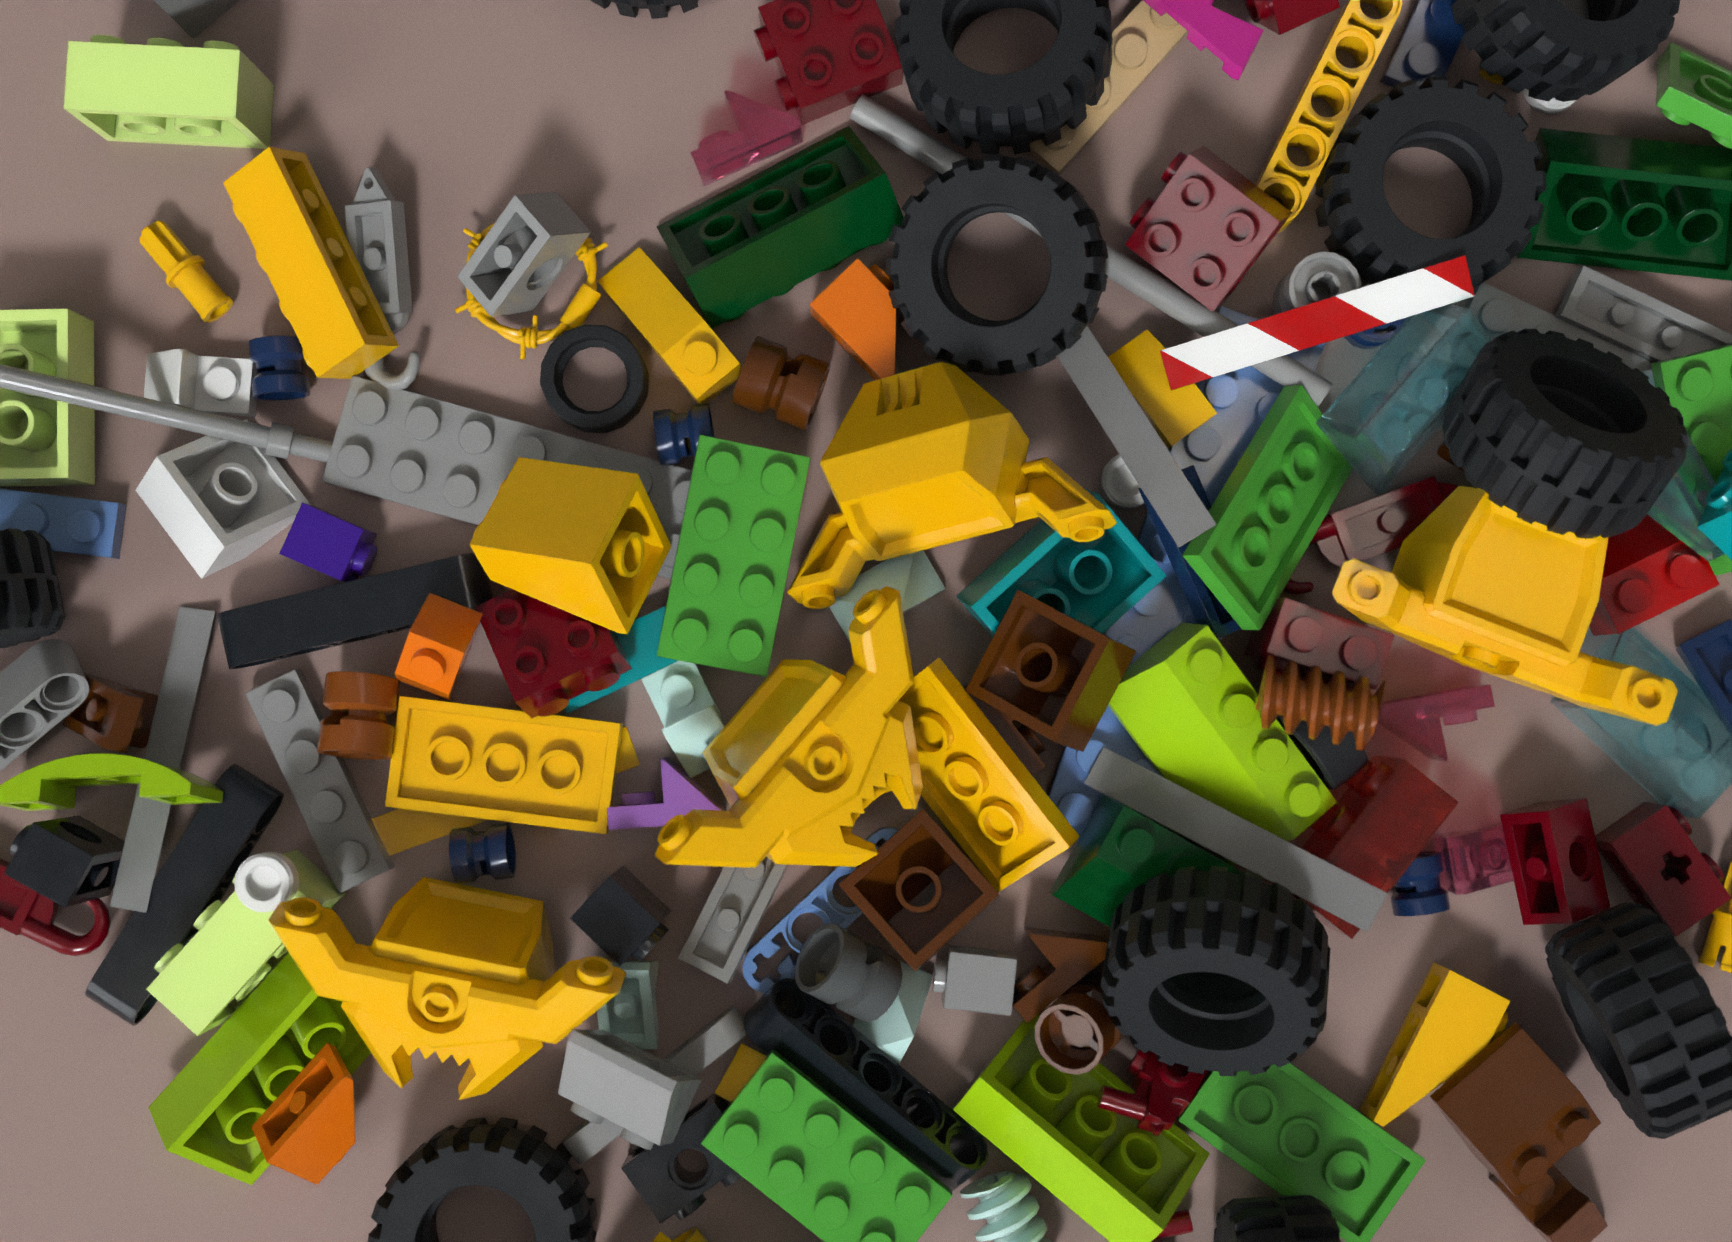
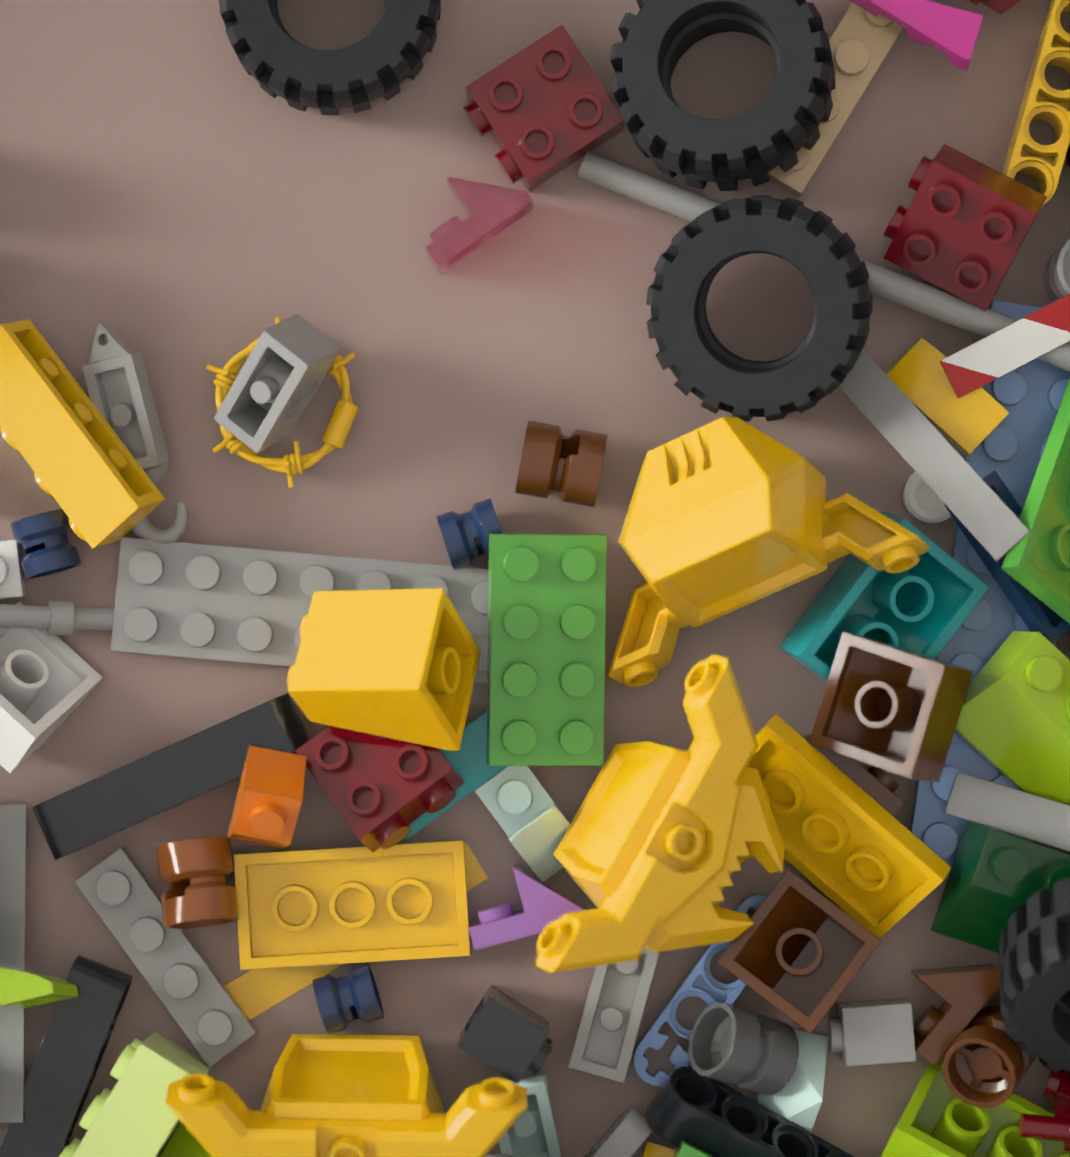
camera: 10 degrees left, 0 degrees up
(266, 881) = (149, 1066): white tile -> none
(330, 544) = (133, 714): dark purple brick -> none
(601, 337) = (350, 455): black tyre -> none
(671, 327) = (435, 425): yellow slope -> none
(782, 226) = (530, 302): dark green slope -> none
(861, 317) = (631, 382): orange slope -> none
(908, 573) = (726, 636): light aqua slope -> none

